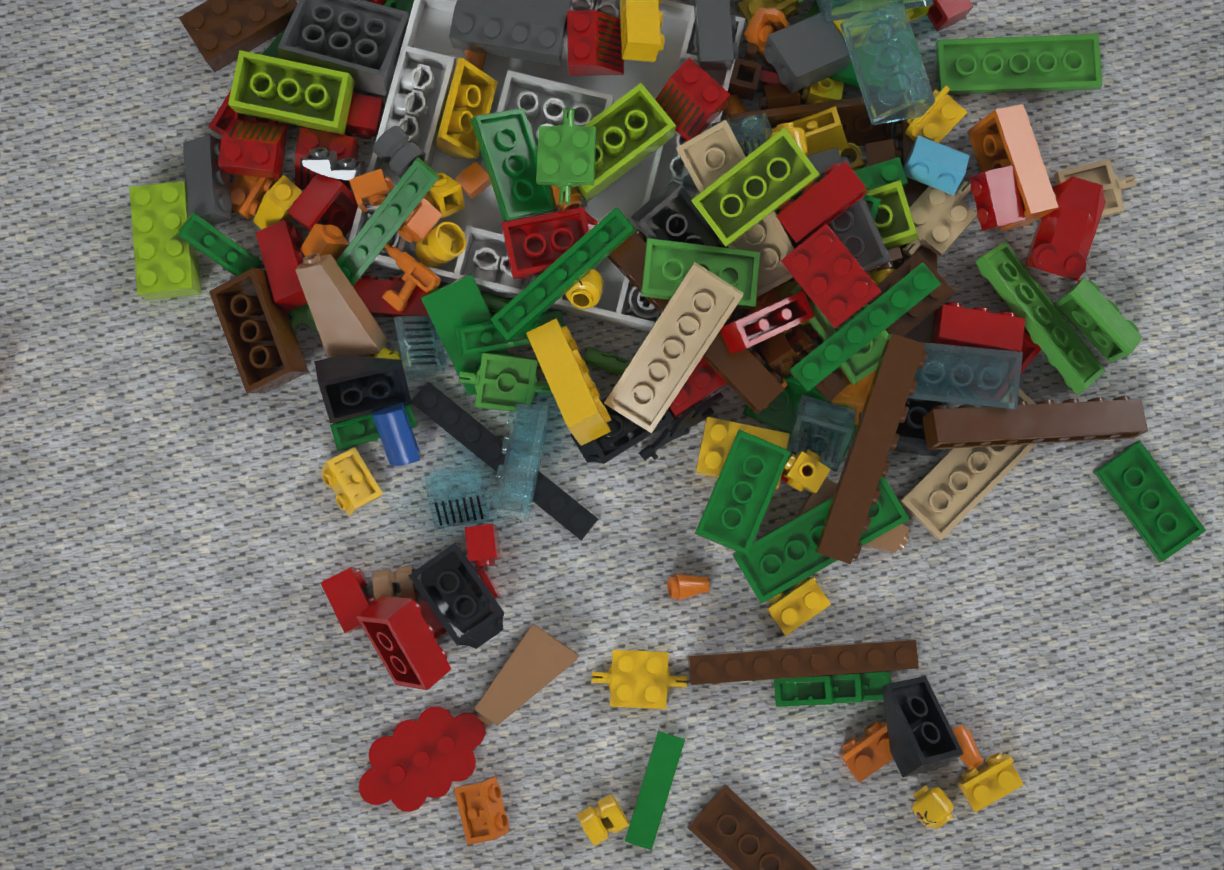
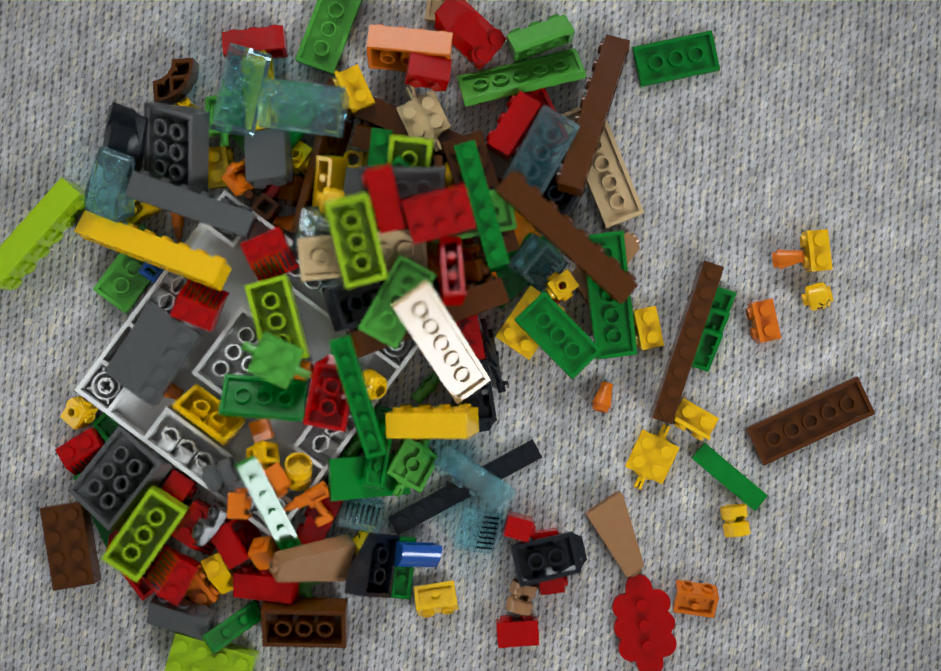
camera: 70 degrees left, 5 degrees up
(404, 642) = (564, 607): red brick -> none
(709, 714) = (695, 419): none -> yellow bracket
(917, 727) = (762, 284): black slope -> none
(936, 165) = (387, 103): medium azure brick -> none

